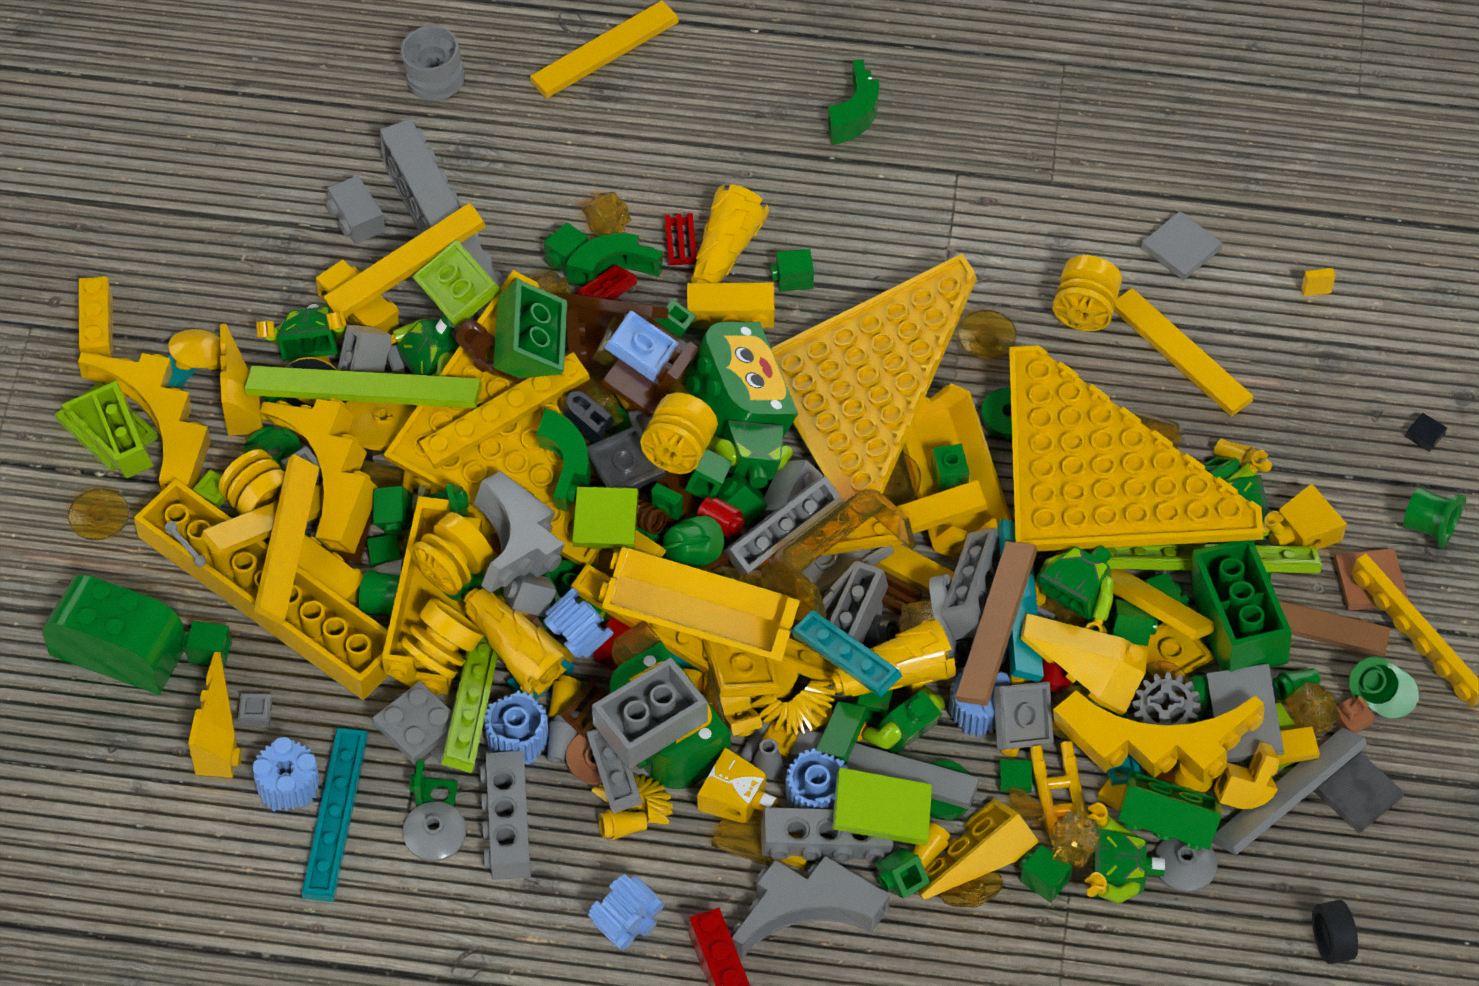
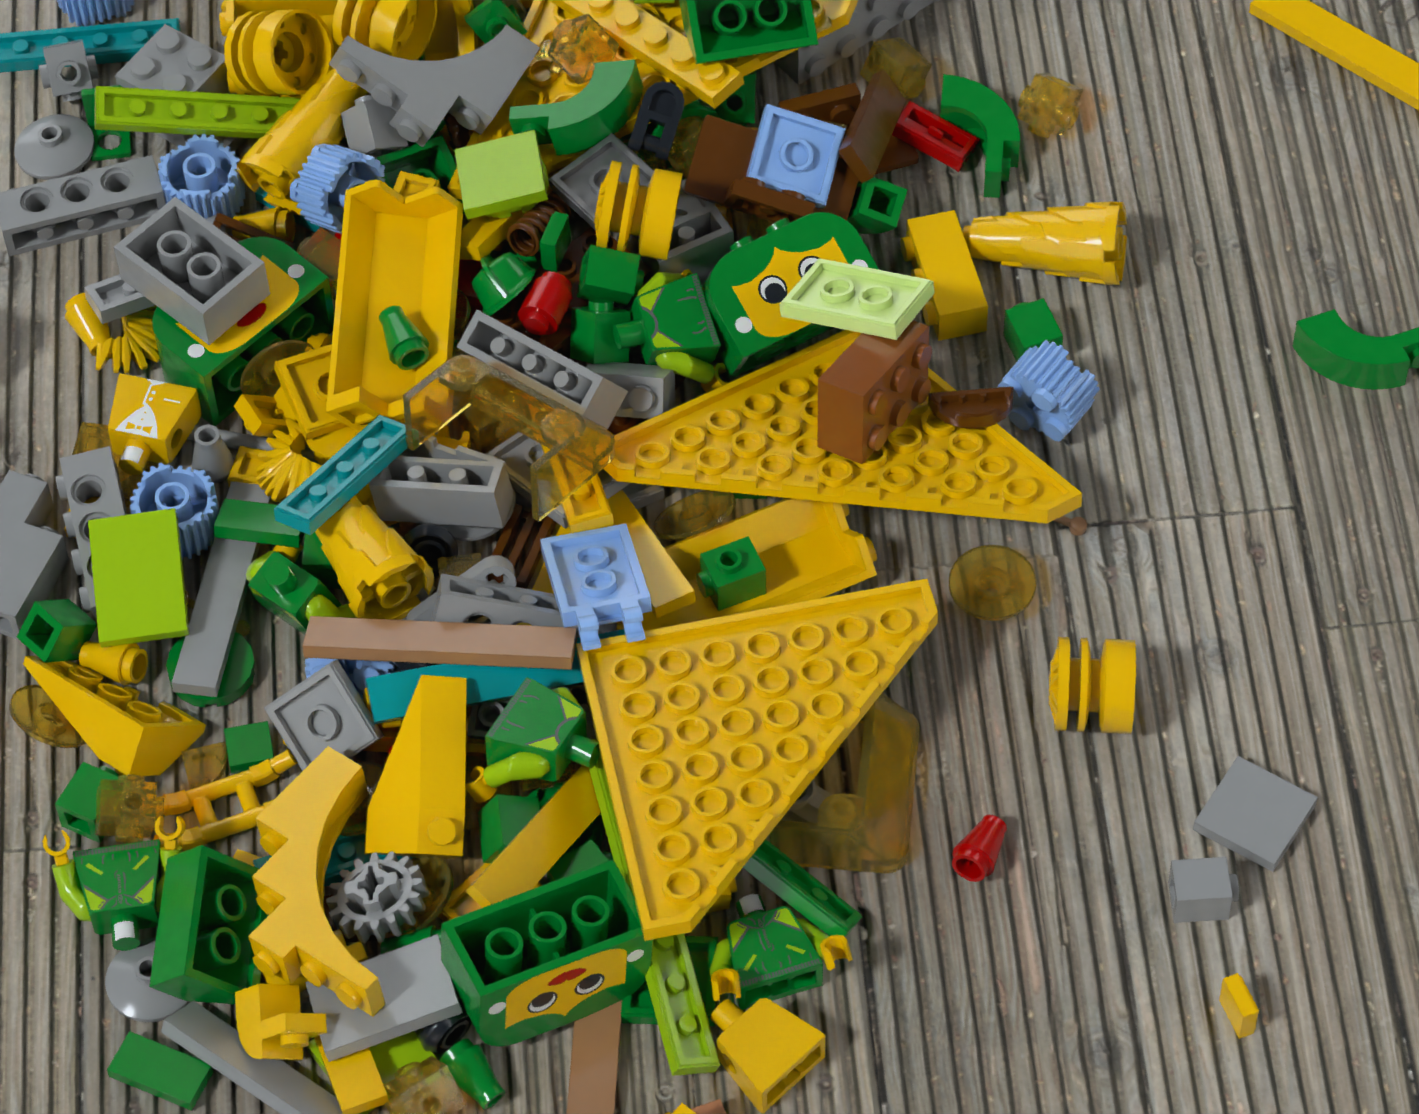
camera: 80 degrees right, 0 degrees up
(373, 802) = (66, 54): none -> light grey brick
(512, 446) = (577, 47): none -> clear yellow brick
(561, 245) = (988, 69): green brick -> none
(680, 221) = (1050, 195): red tile -> none
(726, 607) = (403, 339): none -> green cone
(792, 326) = (857, 298): none -> yellowish green tile
(852, 267) = (1049, 391): none -> light blue brick
(855, 339) = (872, 391): none -> dark orange brick
(867, 302) = (972, 407): none -> reddish brown tile
(966, 527) = (597, 582): none -> light blue tile
(1182, 352) = (1047, 844): yellow tile -> none
(1183, 385) = (978, 851): none -> red cone
(1234, 450) = (869, 941): yellow cone -> none
(1235, 281) = (1201, 889): none -> light grey brick
(1259, 864) = (160, 1070): none -> green tile

